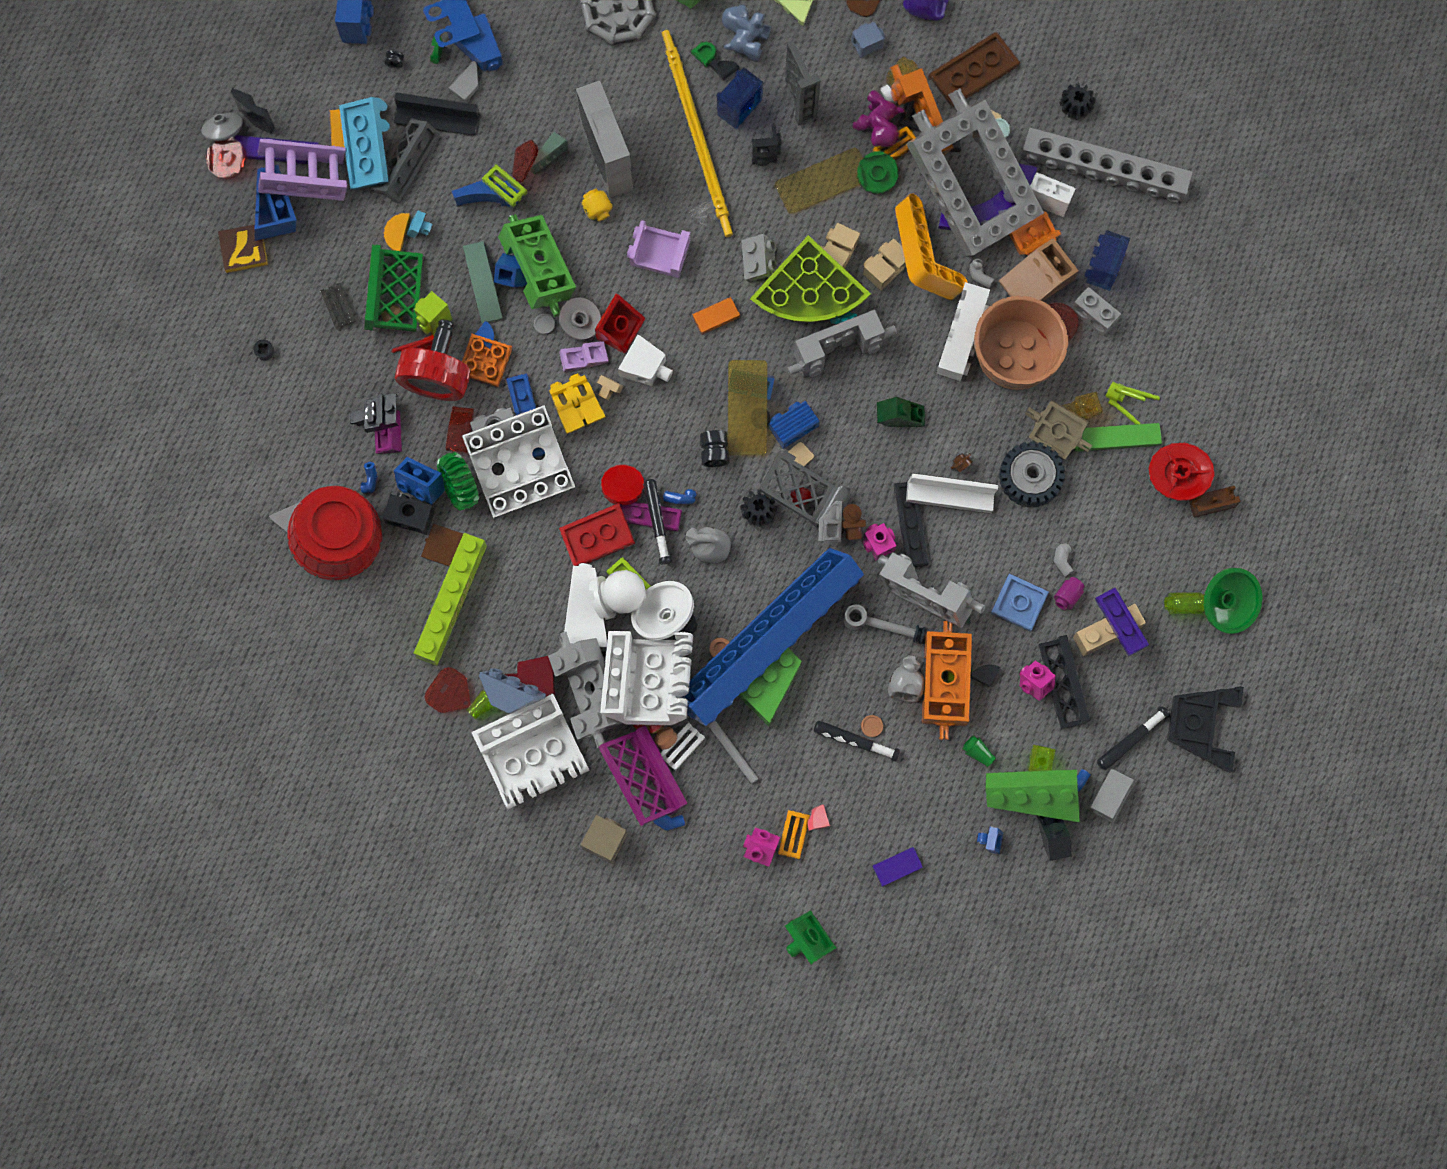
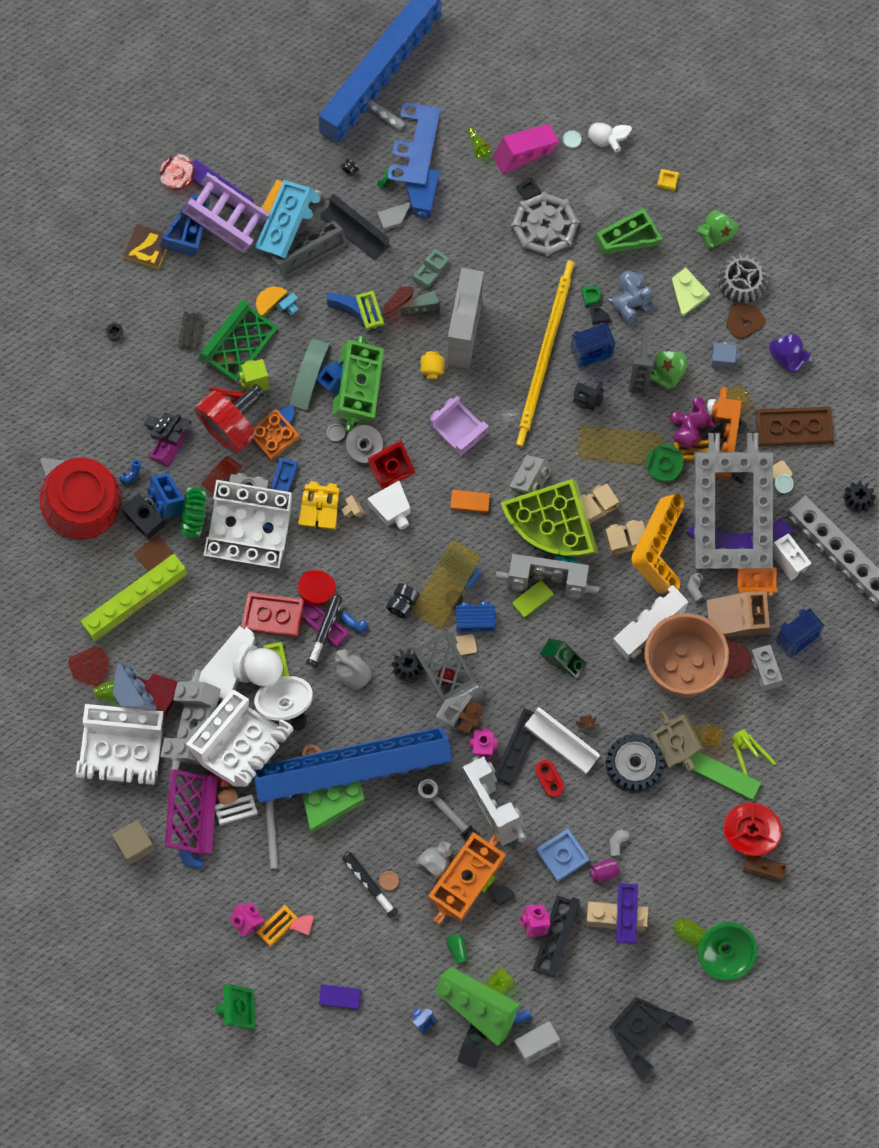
camera: 30 degrees right, 5 degrees down
(222, 126) = (189, 146): light grey dish -> none
(256, 115) = (218, 149): black slope -> none
(535, 113) = (430, 269): none -> sand green slope
(583, 357) = (348, 474): lavender slope -> none
(831, 79) = (668, 368): none -> bright green piece
(835, 374) = (532, 599): none -> lime tile
(962, 535) = (549, 779): none -> red plate
(1132, 739) = (580, 1010): black piece -> none

